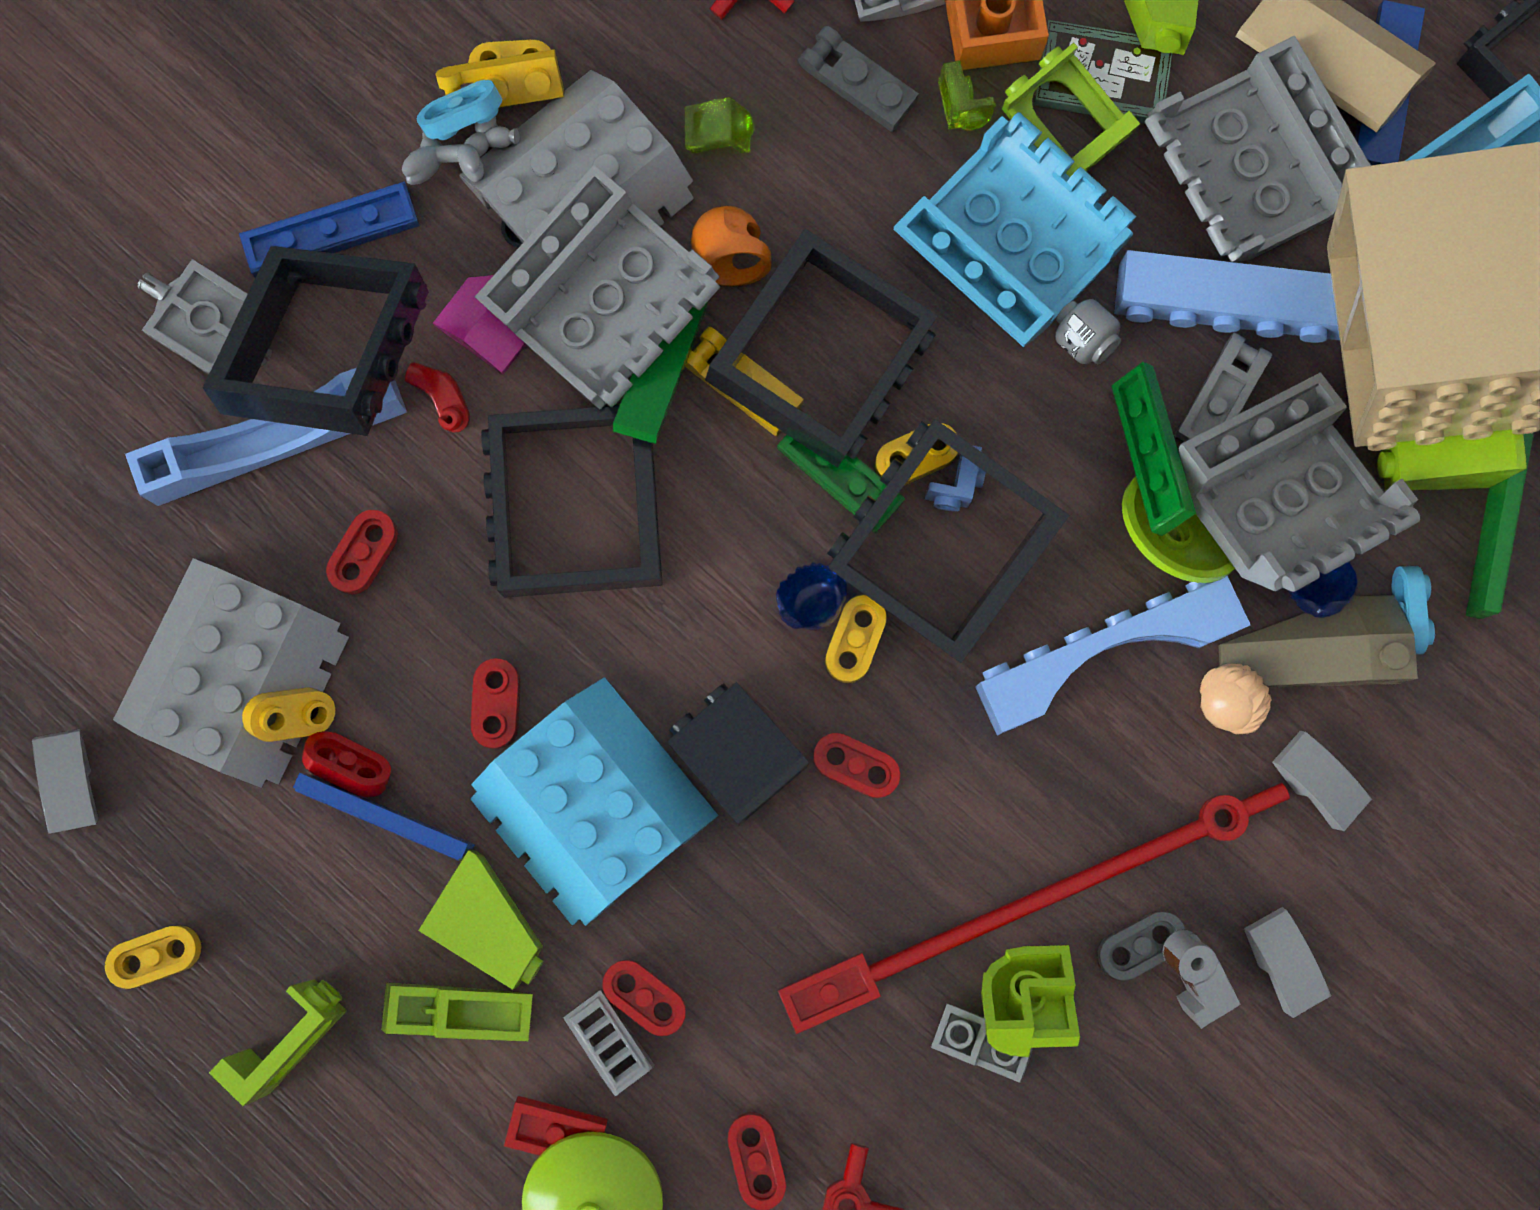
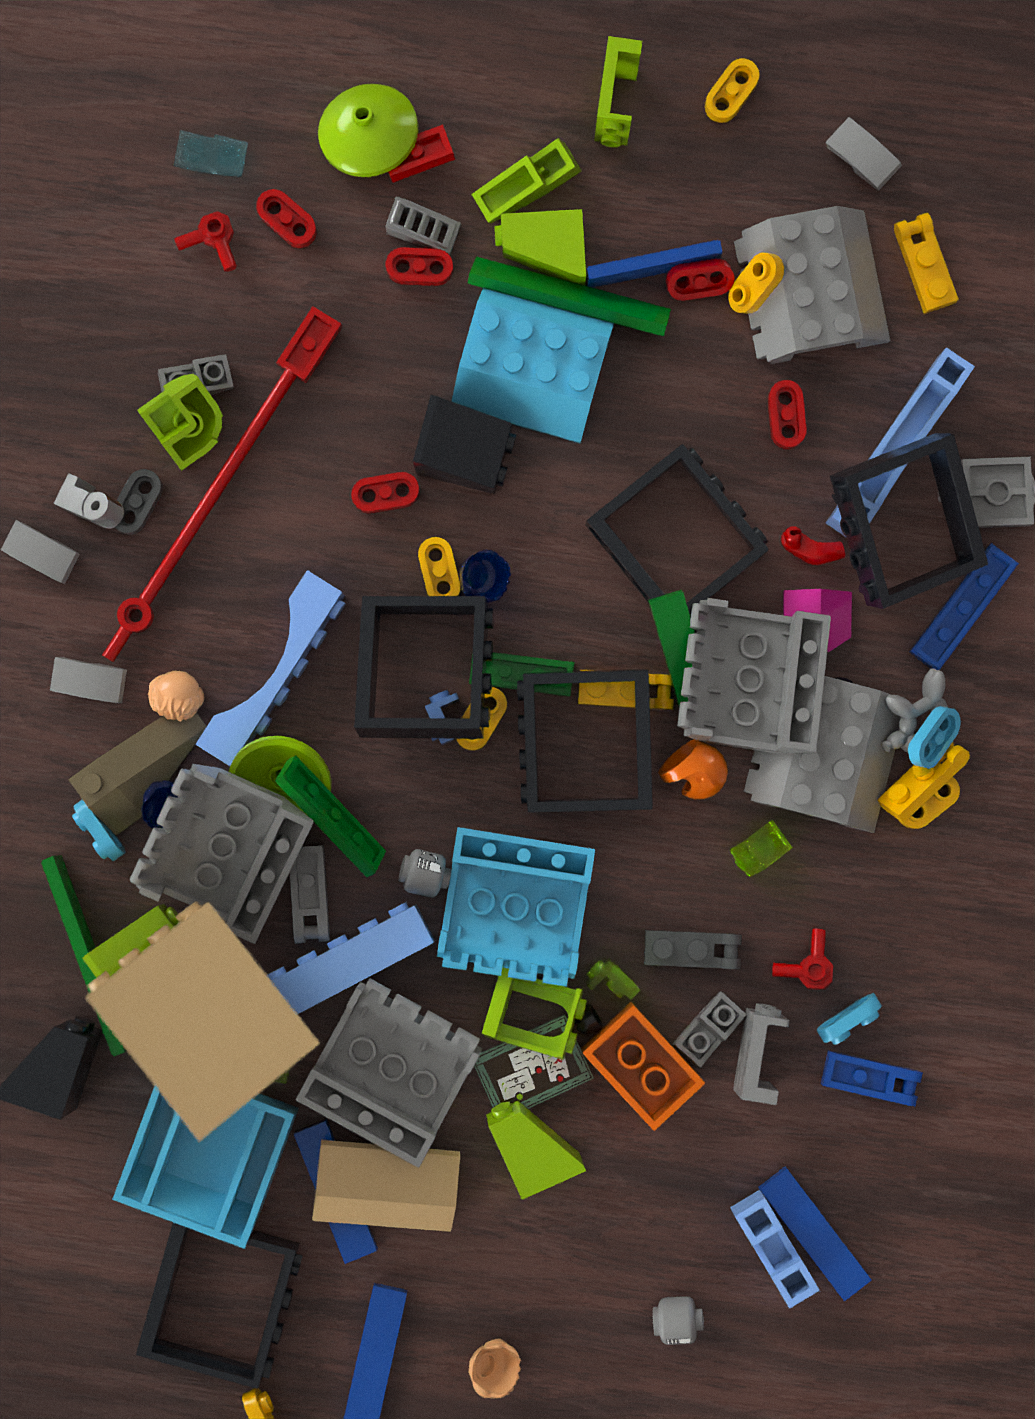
camera: 145 degrees right, 5 degrees up
(91, 615) = (926, 264): none -> yellow plate
(497, 702) = (635, 379): red plate -> none
(502, 846) = (569, 296): none -> green tile
(1010, 73) = (590, 1022): none -> black hinge

